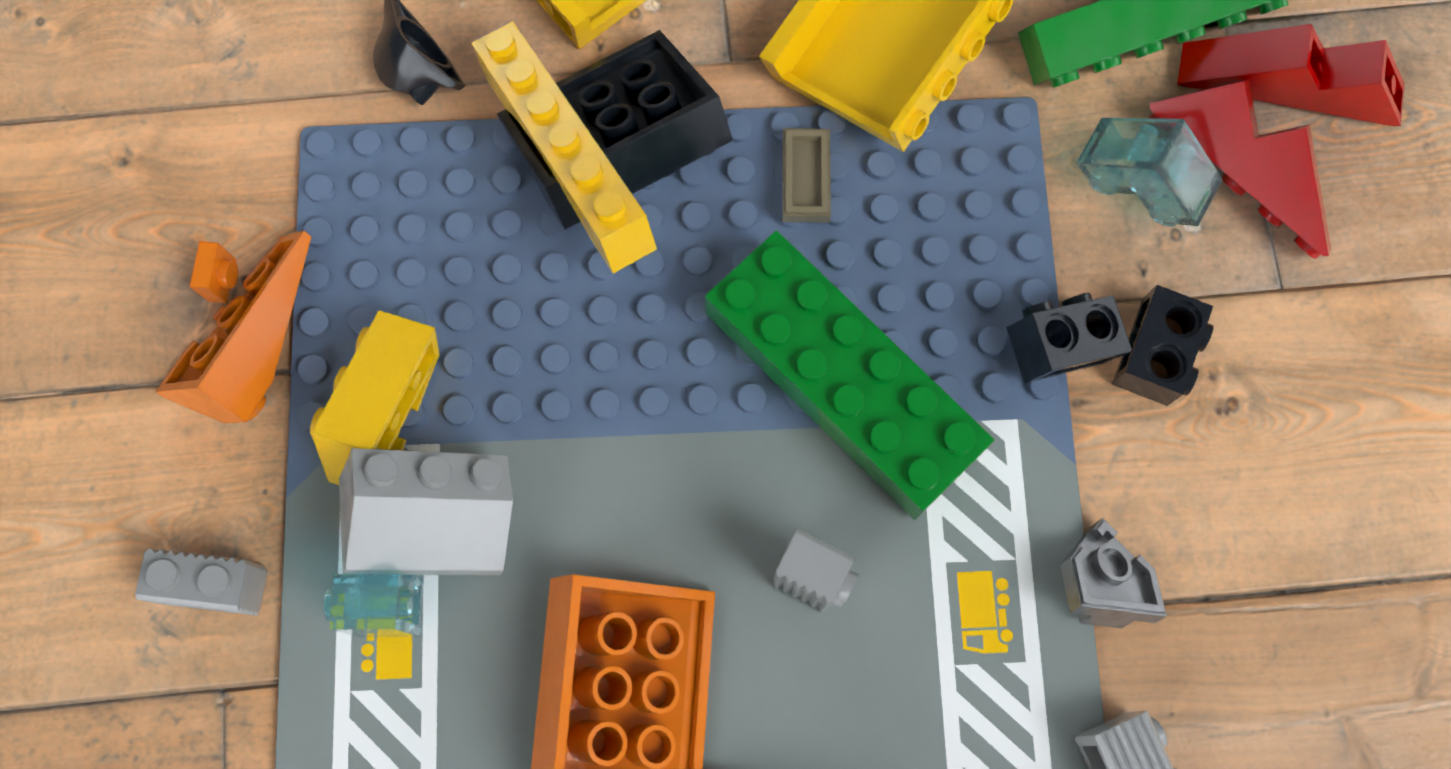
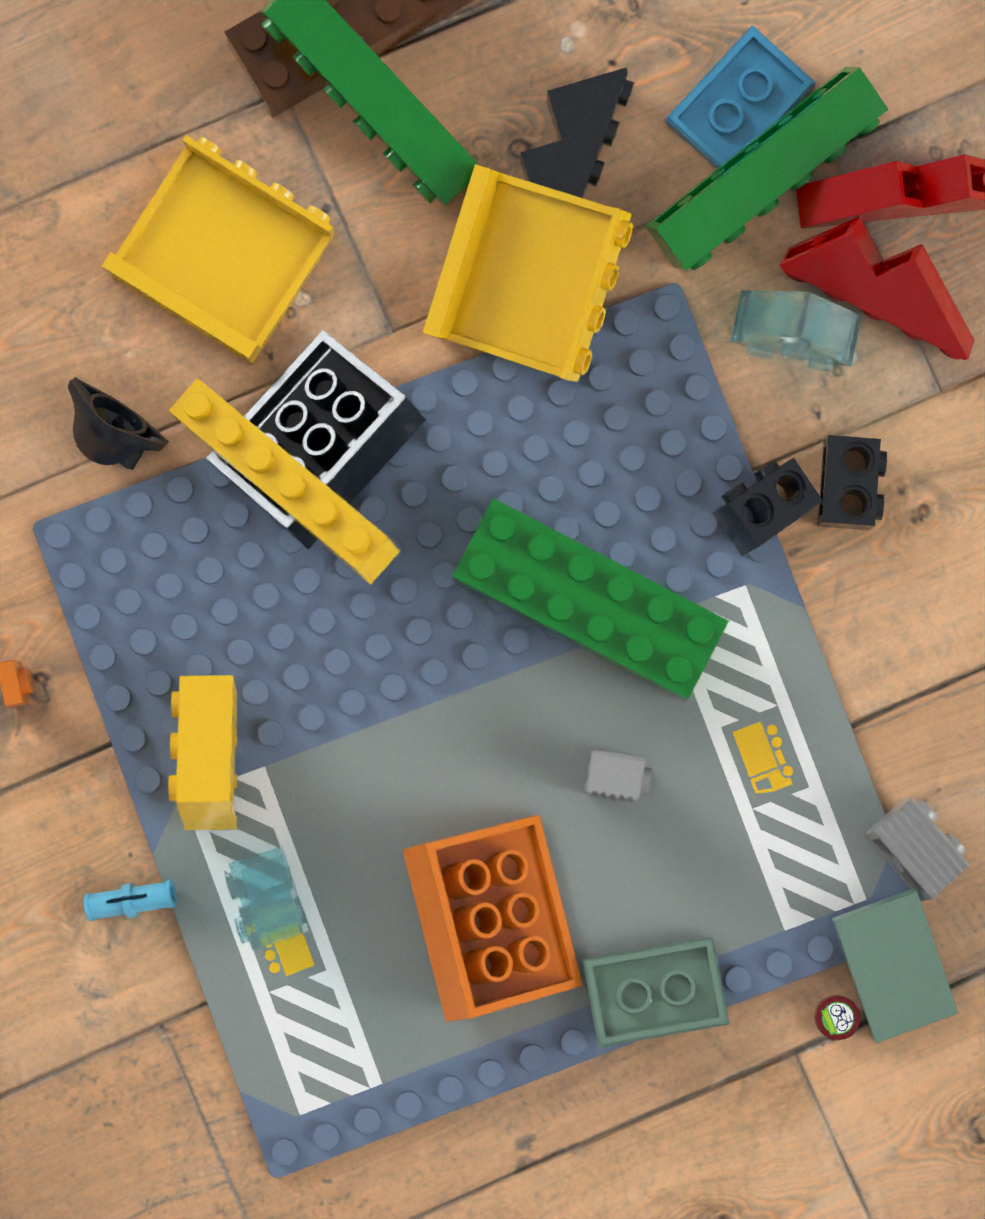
camera: 20 degrees left, 10 degrees up
(201, 581) = (116, 946): light grey brick -> none
(239, 359) = (64, 746): orange wedge -> none
(239, 537) = (130, 900): none -> medium azure pin
(424, 512) = (286, 833): slope -> none
(806, 175) = (498, 426): dark tan tile -> none
(1109, 583) = (858, 700): flat silver plate -> none

